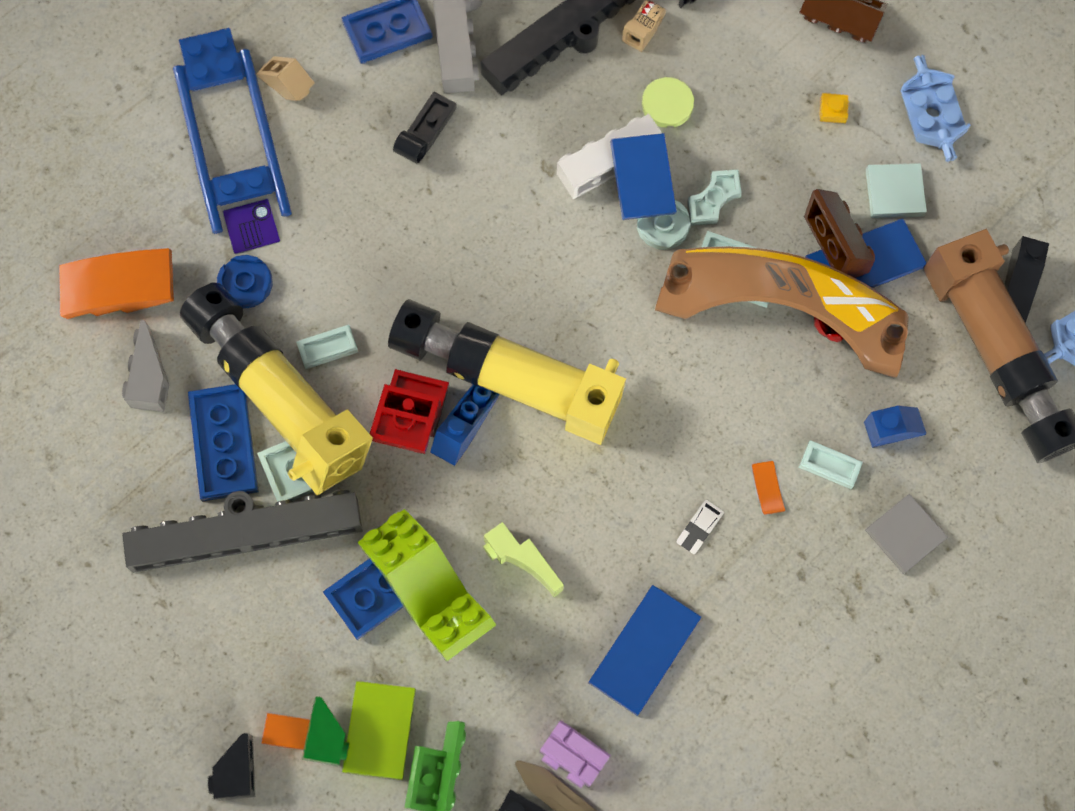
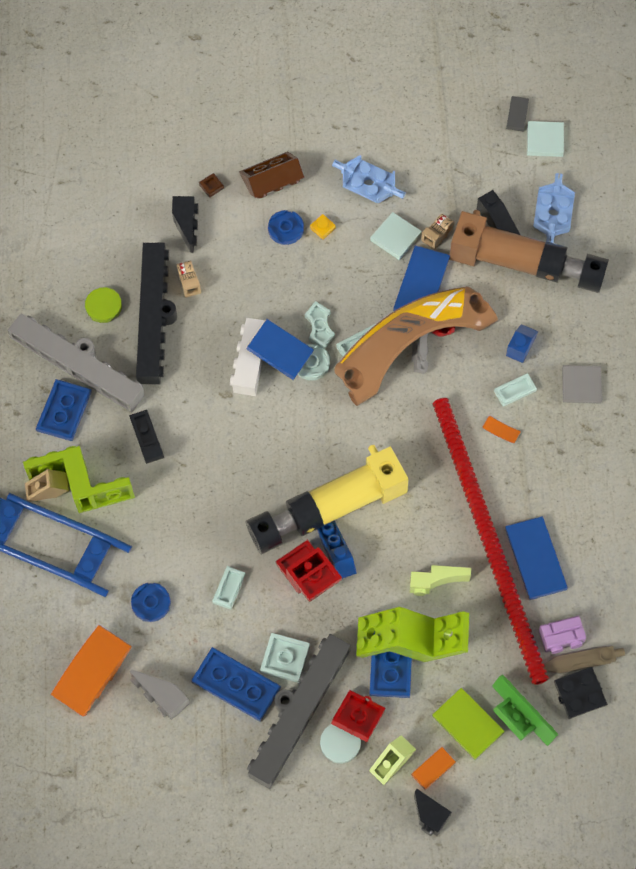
camera: 45 degrees left, 5 degrees down
(243, 605) = (339, 745): none -> light aqua tile
(251, 226) = (119, 573): dark purple sticker -> none
(267, 678) = (392, 759): none -> yellowish green slope
(286, 600) = (358, 715): none -> red plate
(315, 100) = (84, 495): none -> lime bracket
(324, 737) = (450, 750): green slope -> none
(325, 443) = (232, 628): light yellow piece -> none
(618, 582) = (490, 542): none -> red piece
(668, 102) = (244, 303): yellowish green tile -> none
(700, 527) = (493, 479): sticker -> none
(777, 325) = (419, 354): none -> light grey hinge
(797, 72) = (285, 227): none -> blue tile
(838, 234) = (398, 282): reddish brown slope -> none
(942, 227) = (437, 231): none -> tan leg

